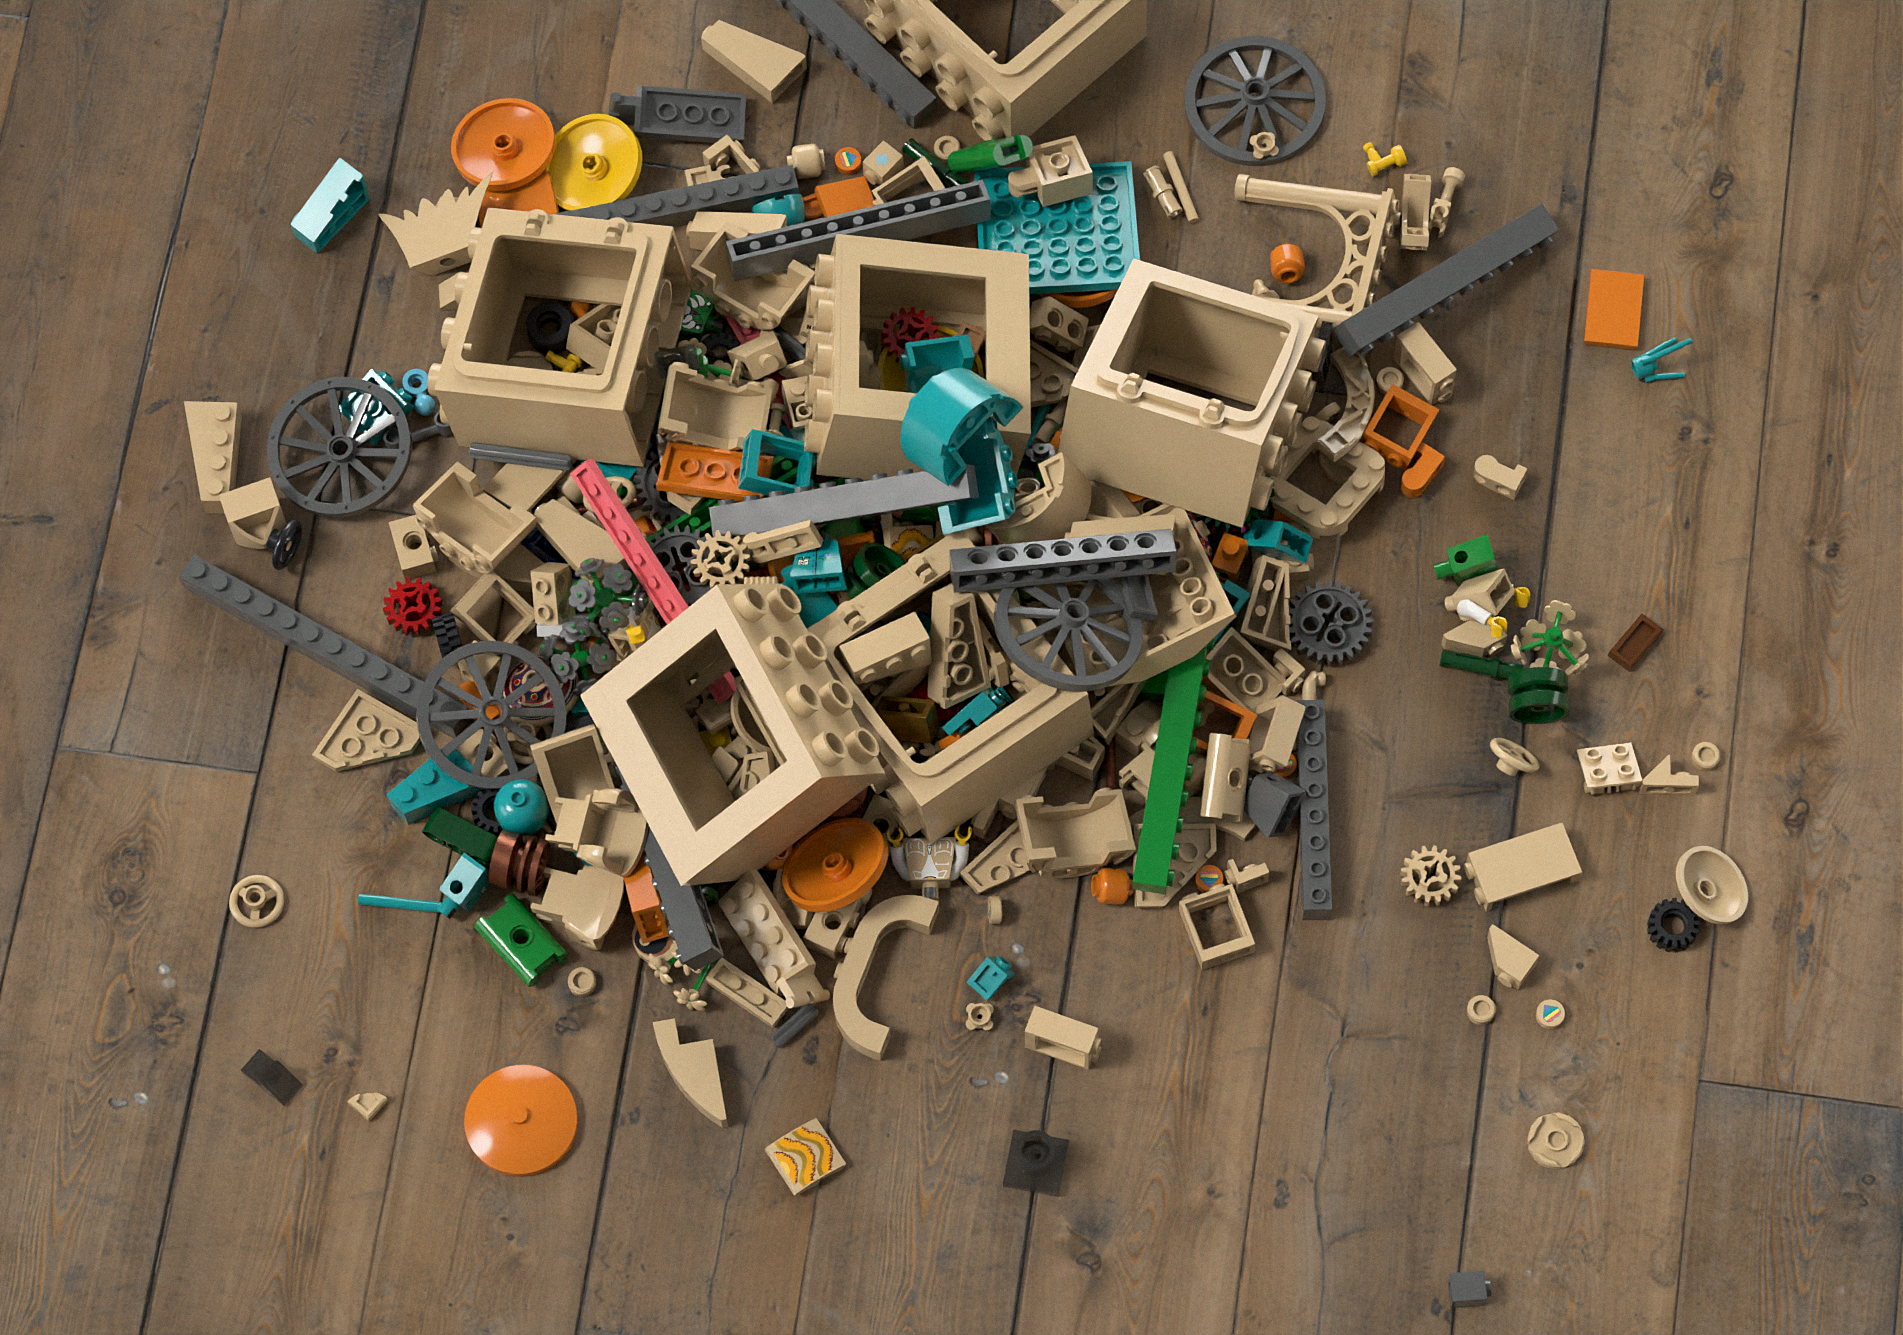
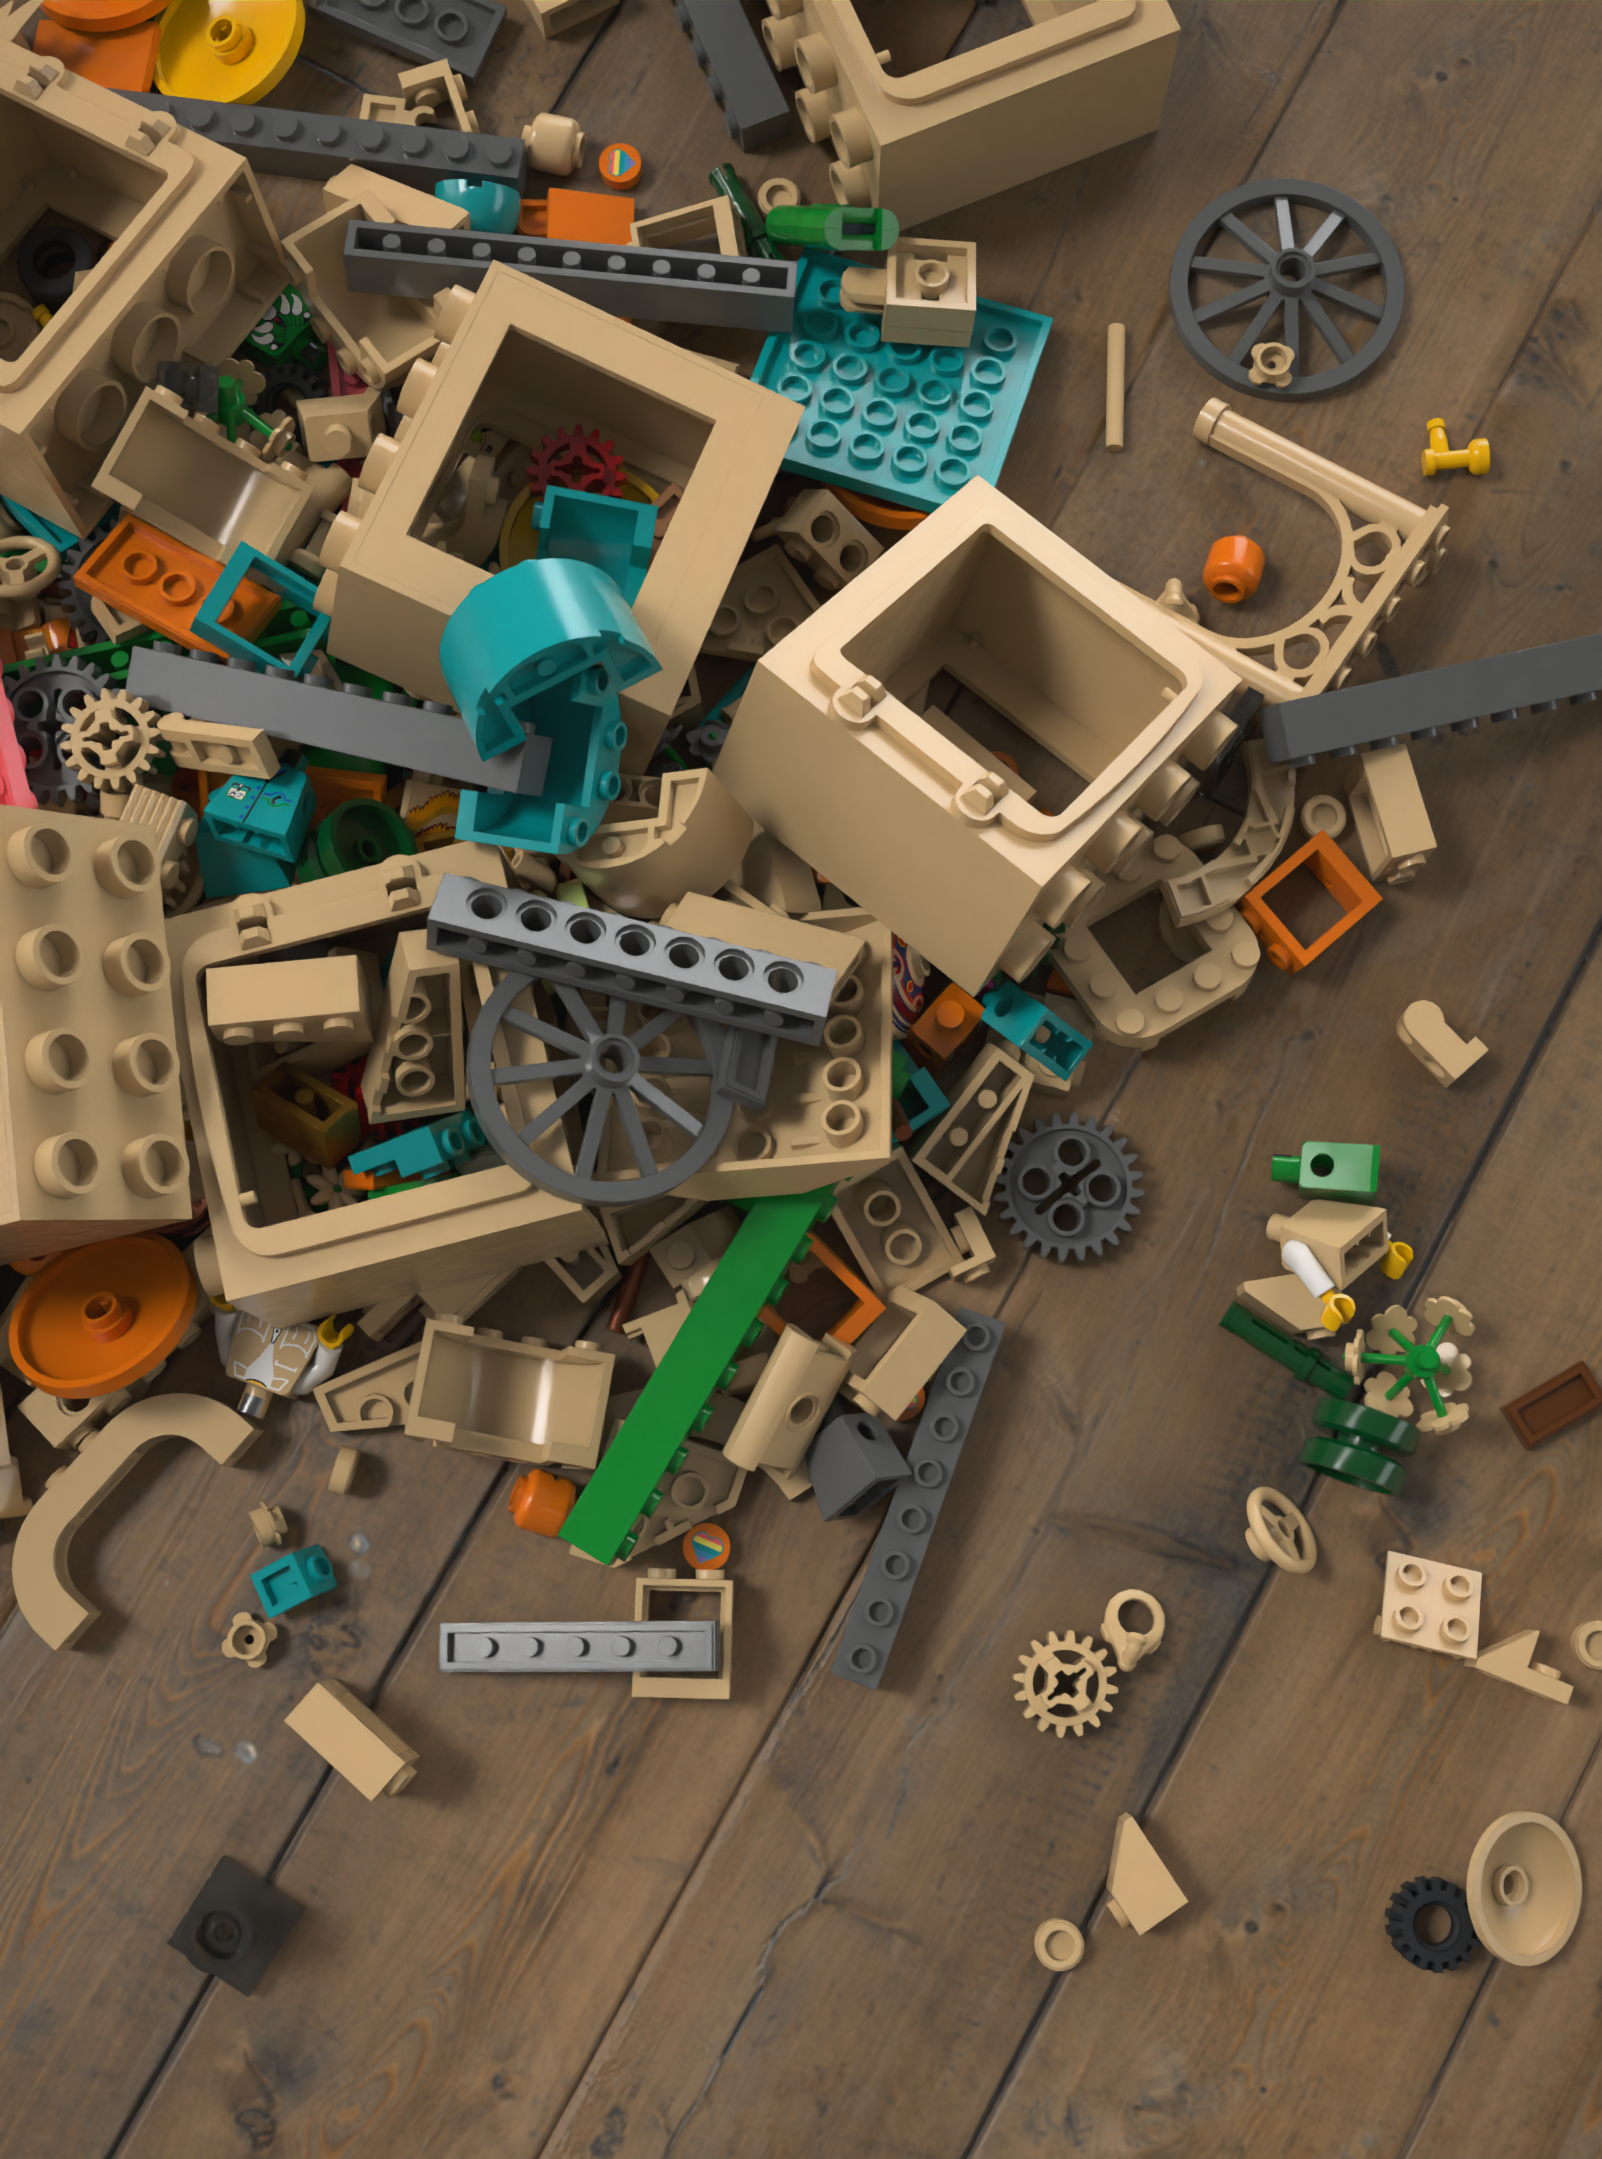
camera: 20 degrees right, 10 degrees up
(882, 164) = (666, 186): tan brick -> none
(964, 953) = (268, 1524): none -> tan plate
(1162, 192) = (1083, 384): tan pin -> none
(1162, 948) = (580, 1646): none -> tile
(1250, 877) = (774, 1571): tan bracket -> none
(1309, 686) = (994, 1284): tan arm -> none
(1415, 212) = (1469, 558): tan arch -> none
(1424, 471) = (1307, 997): orange leg -> none
(1439, 215) = (1549, 526): tan bar -> none
(1461, 839) = (1132, 1645): none -> tan piece
(1522, 865) = (1222, 1728): tan panel -> none
(1550, 1014) = (1169, 1997): tan tile -> none

